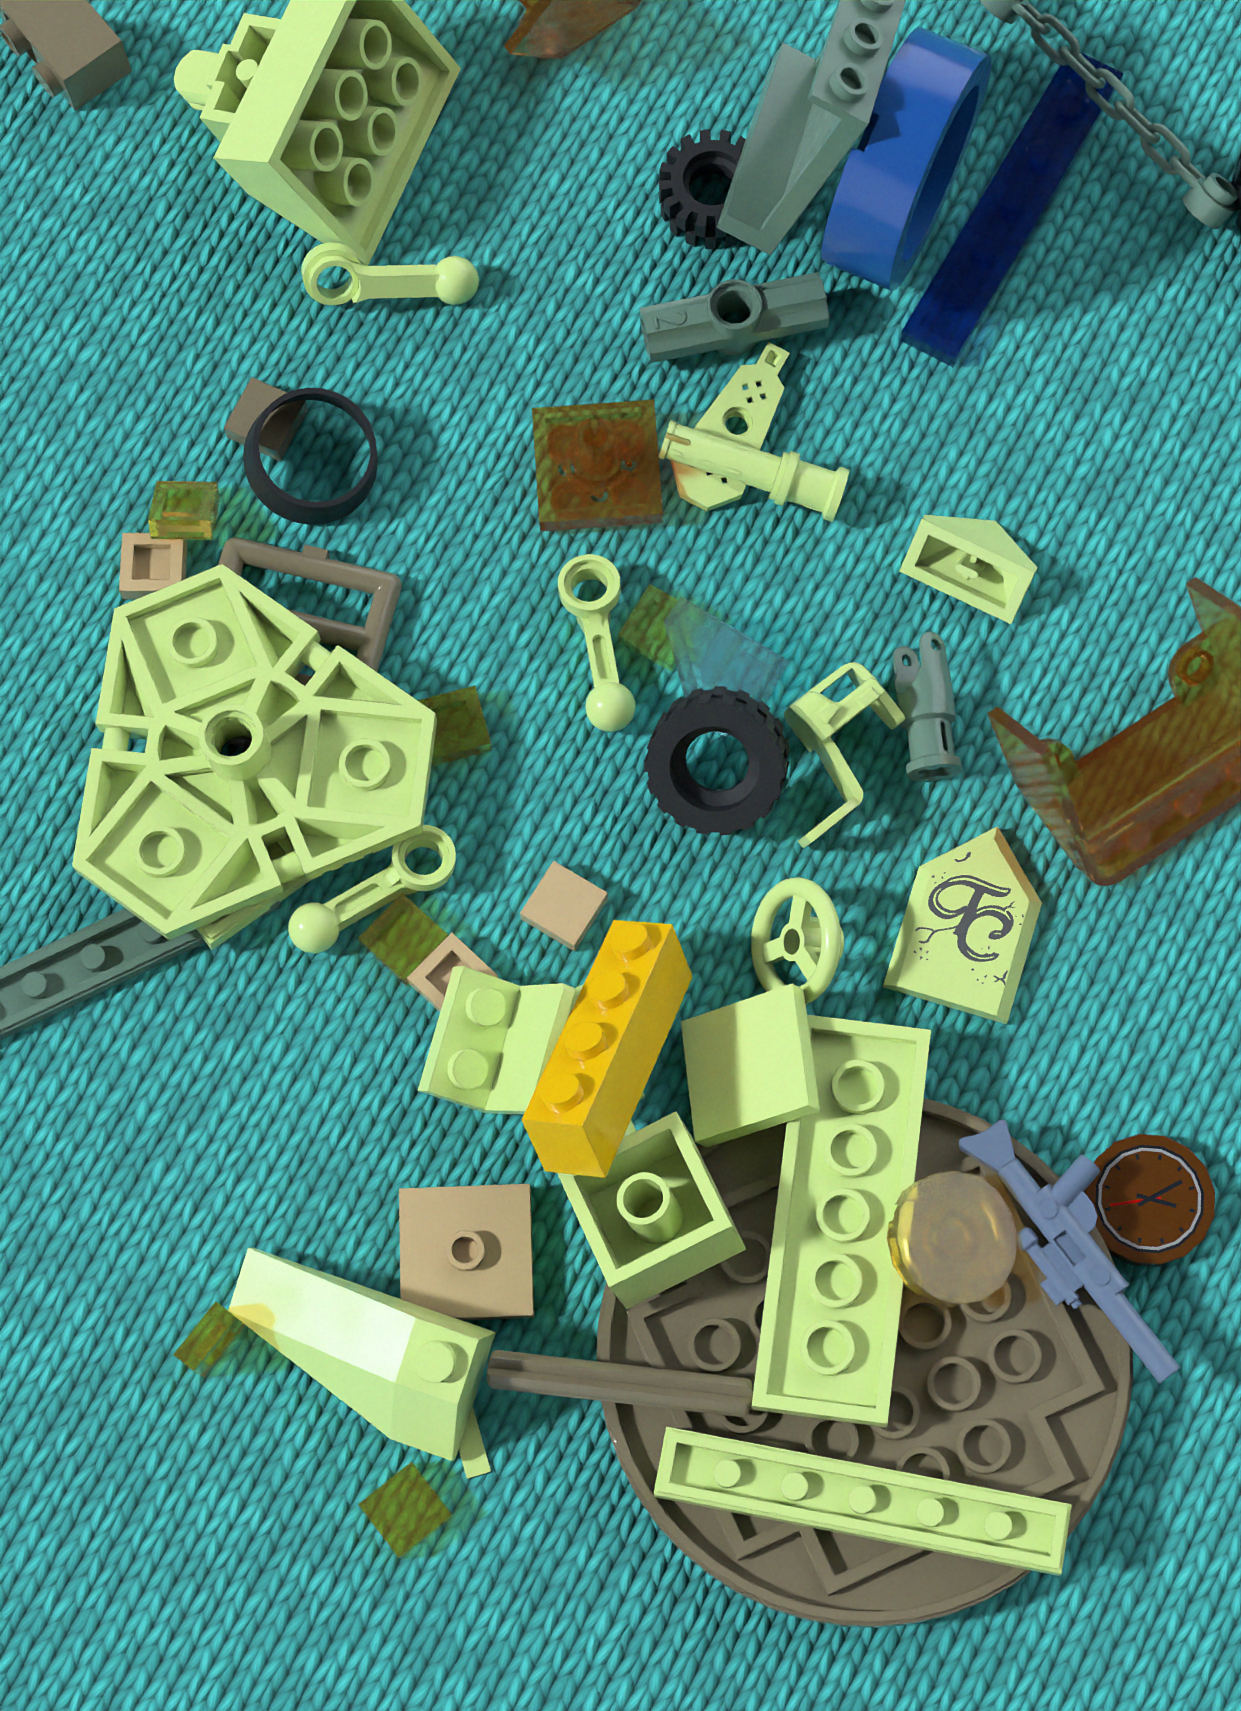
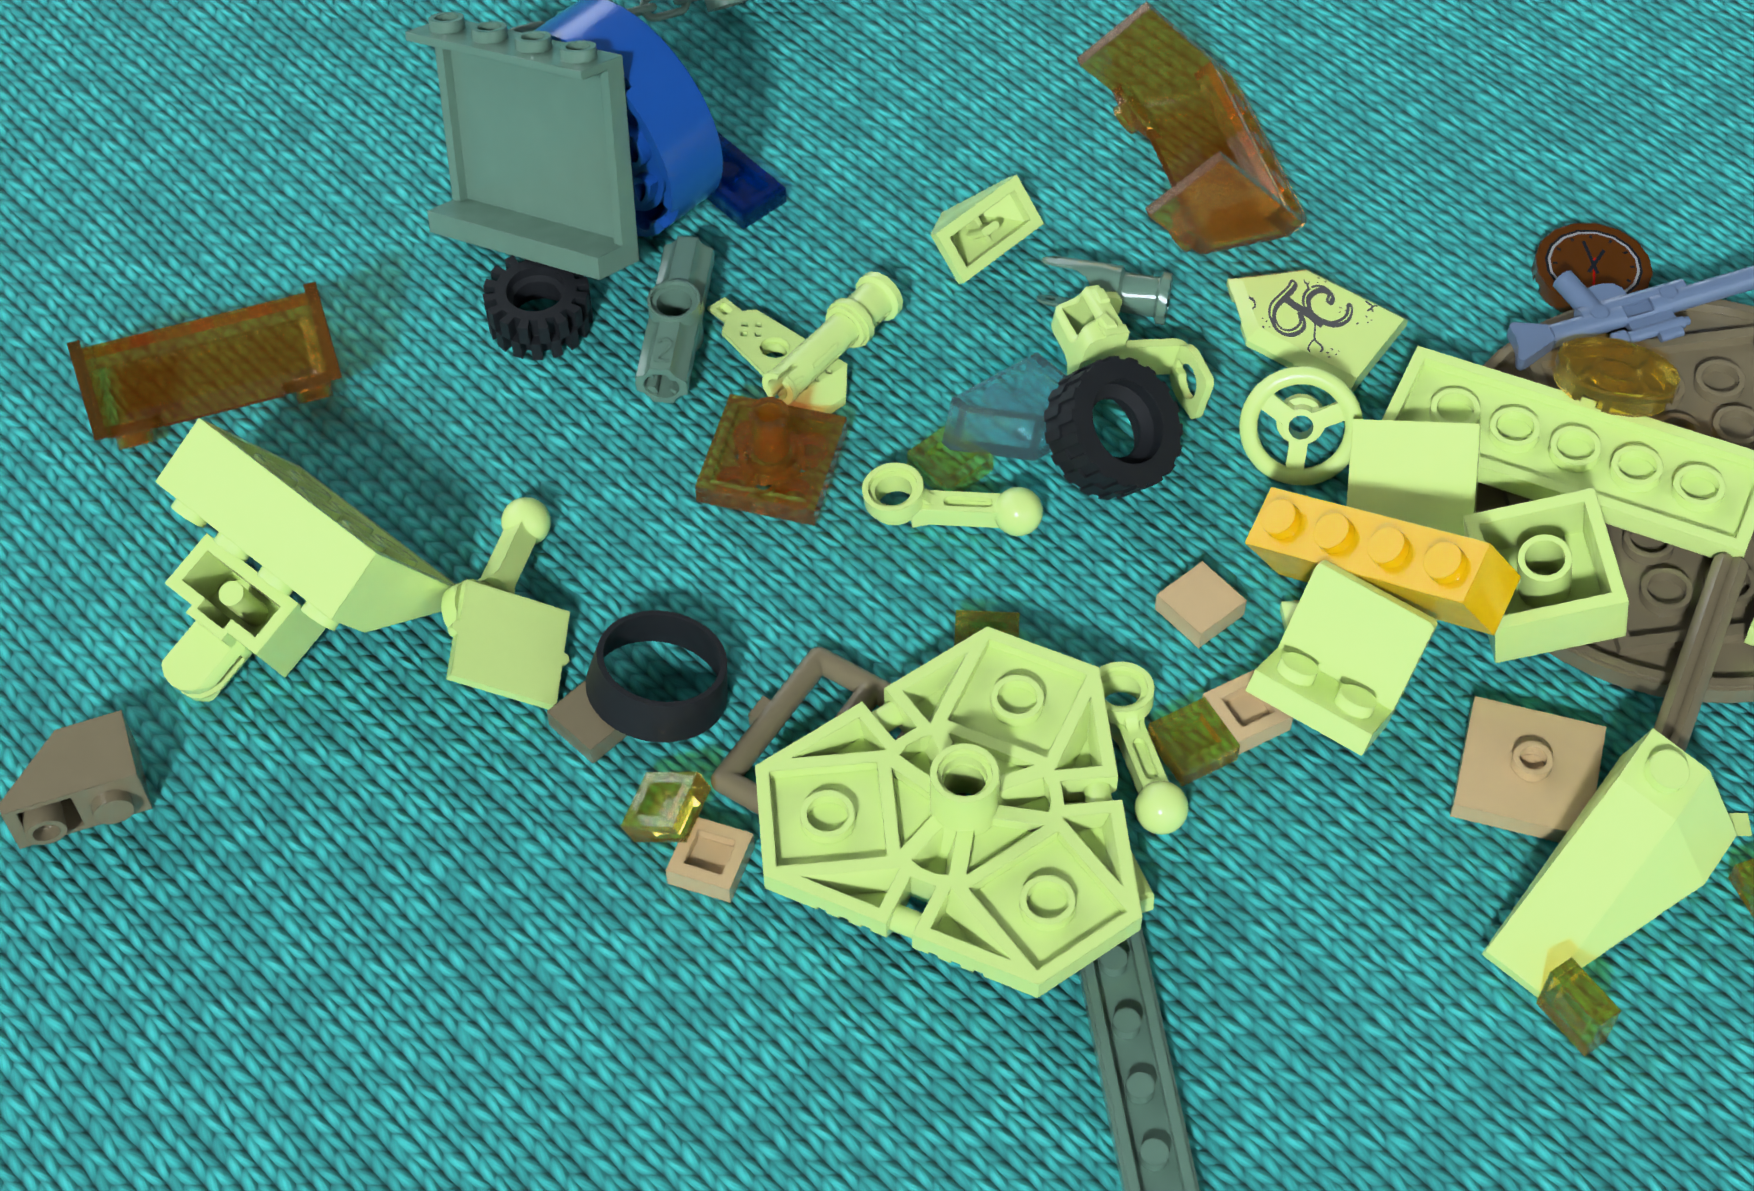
camera: 75 degrees left, 20 degrees down
(300, 317) = (508, 645): none -> yellowish green piece

